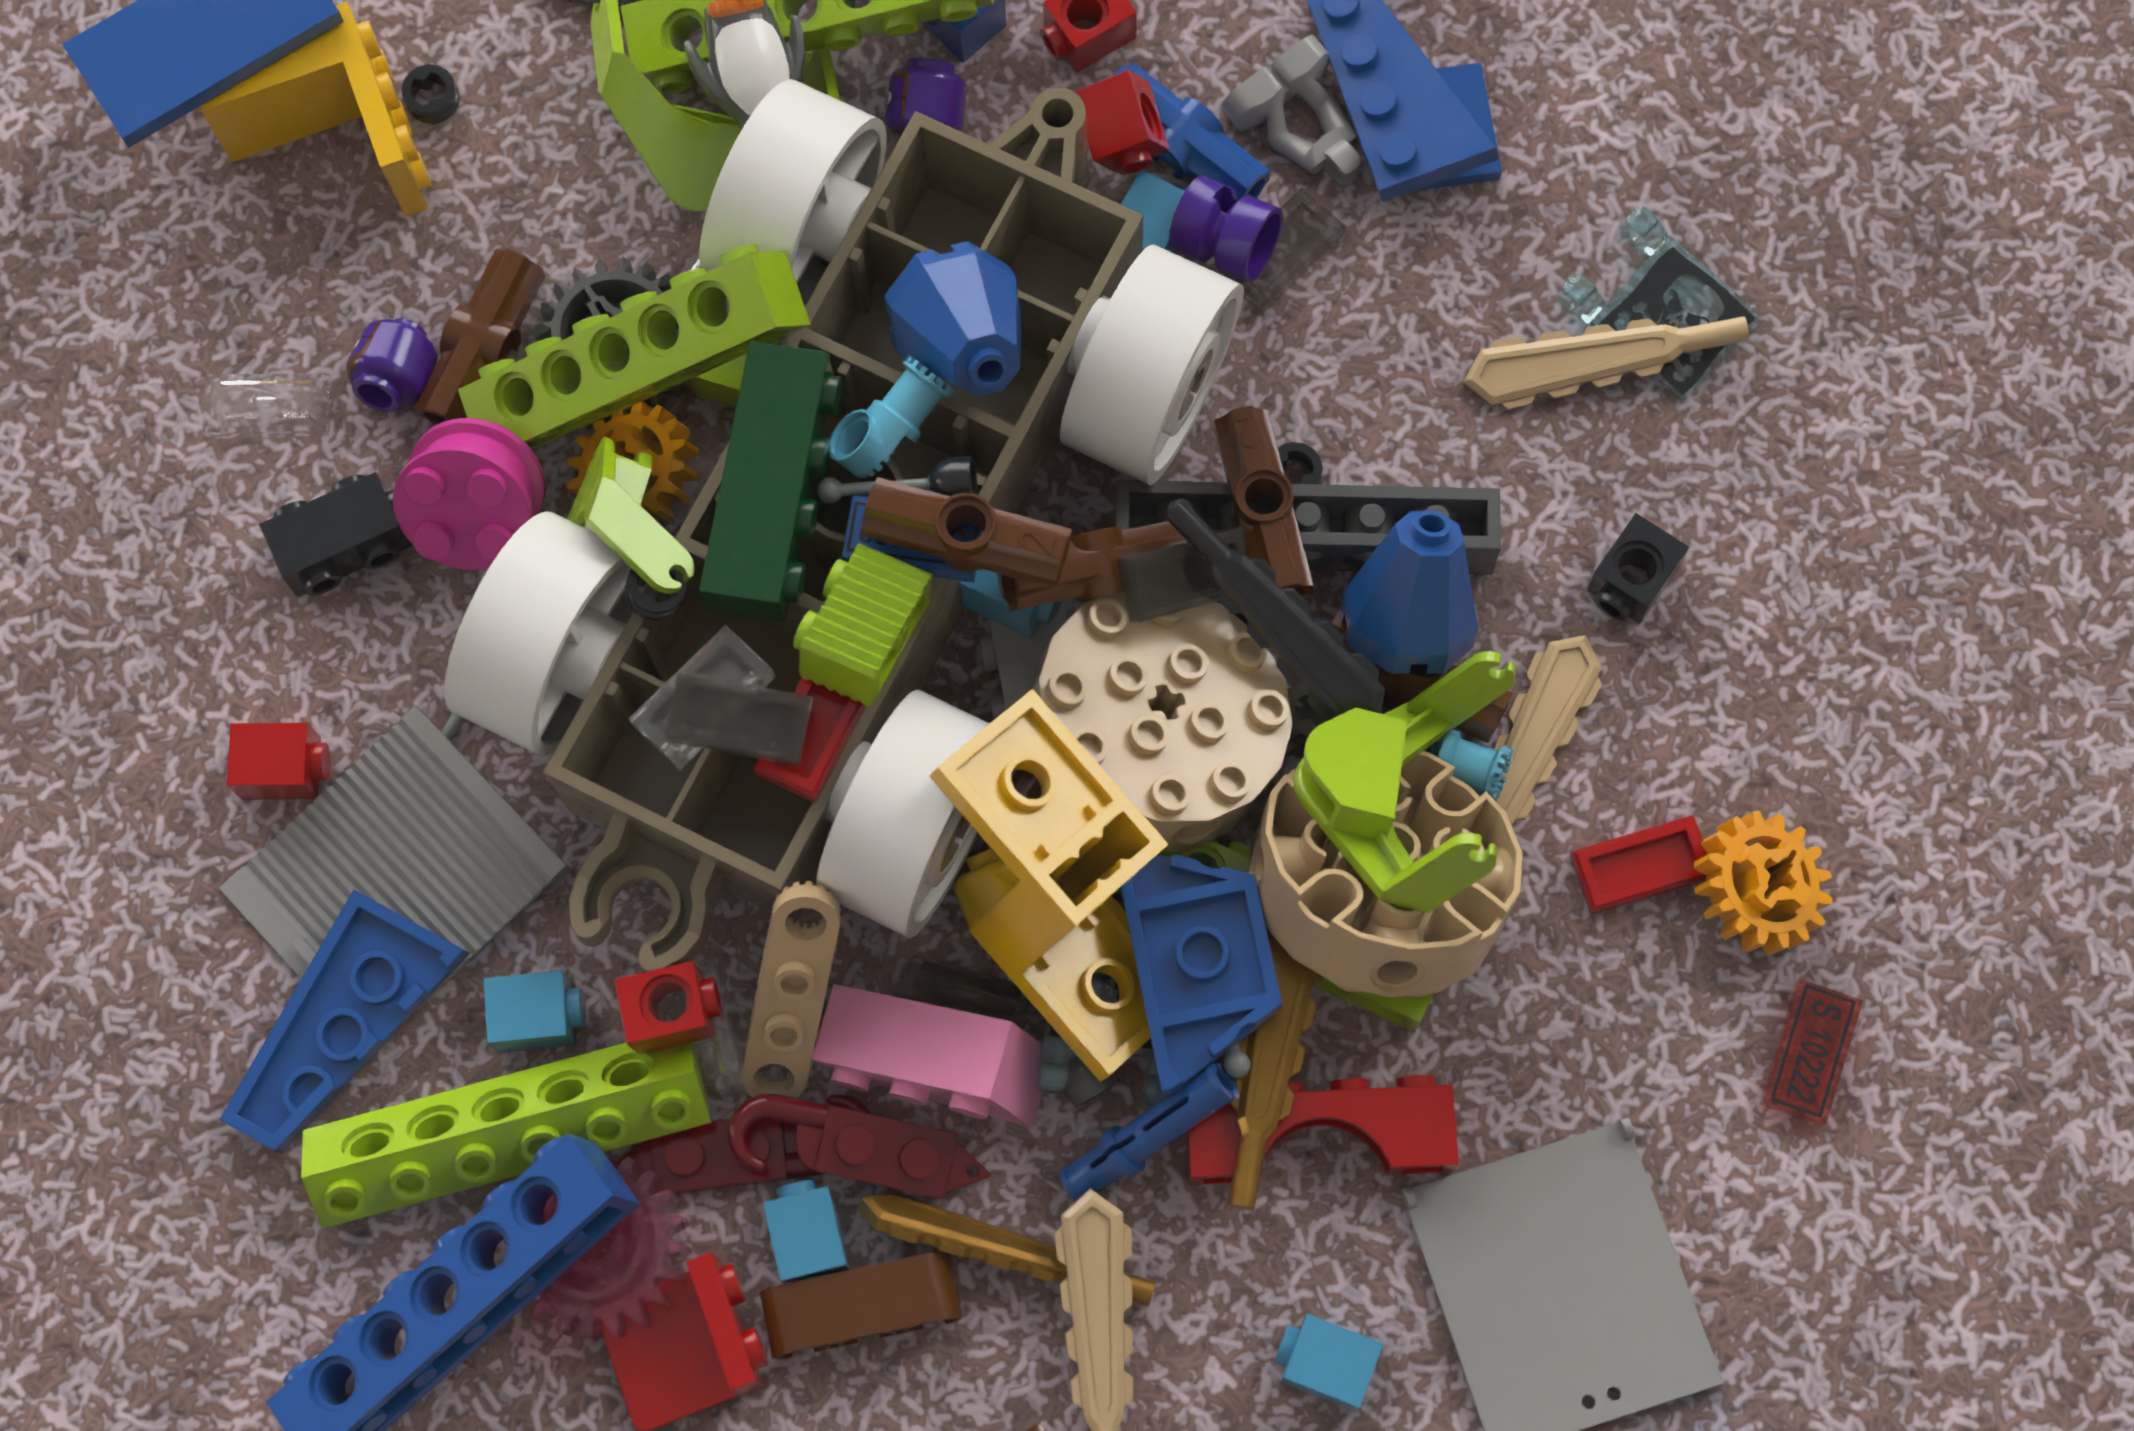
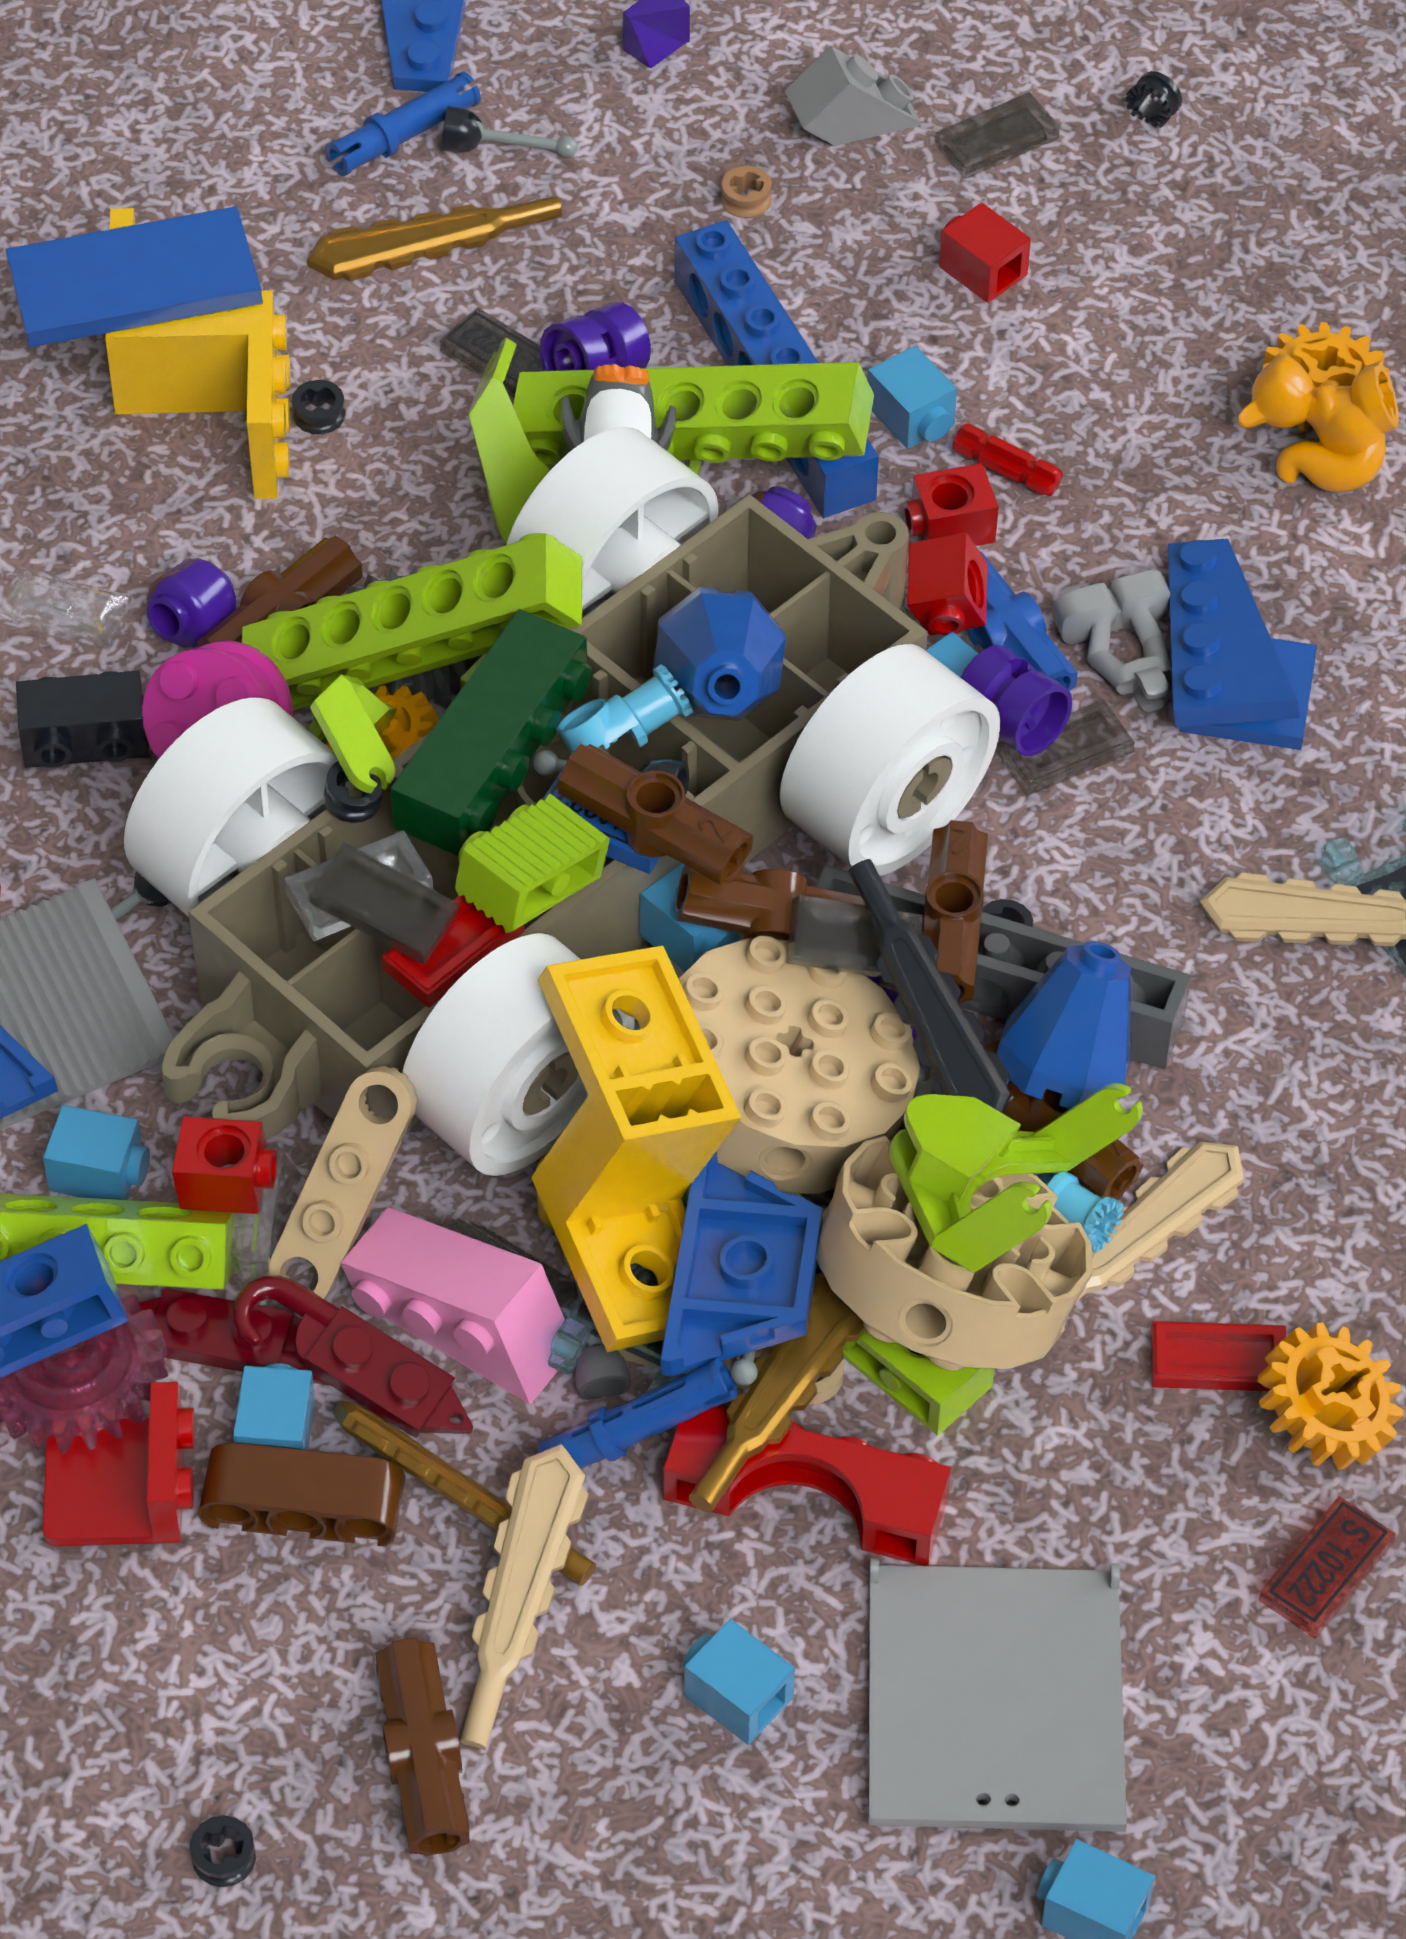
camera: 15 degrees right, 20 degrees down
(1645, 547) = (1312, 1078): black brick -> none

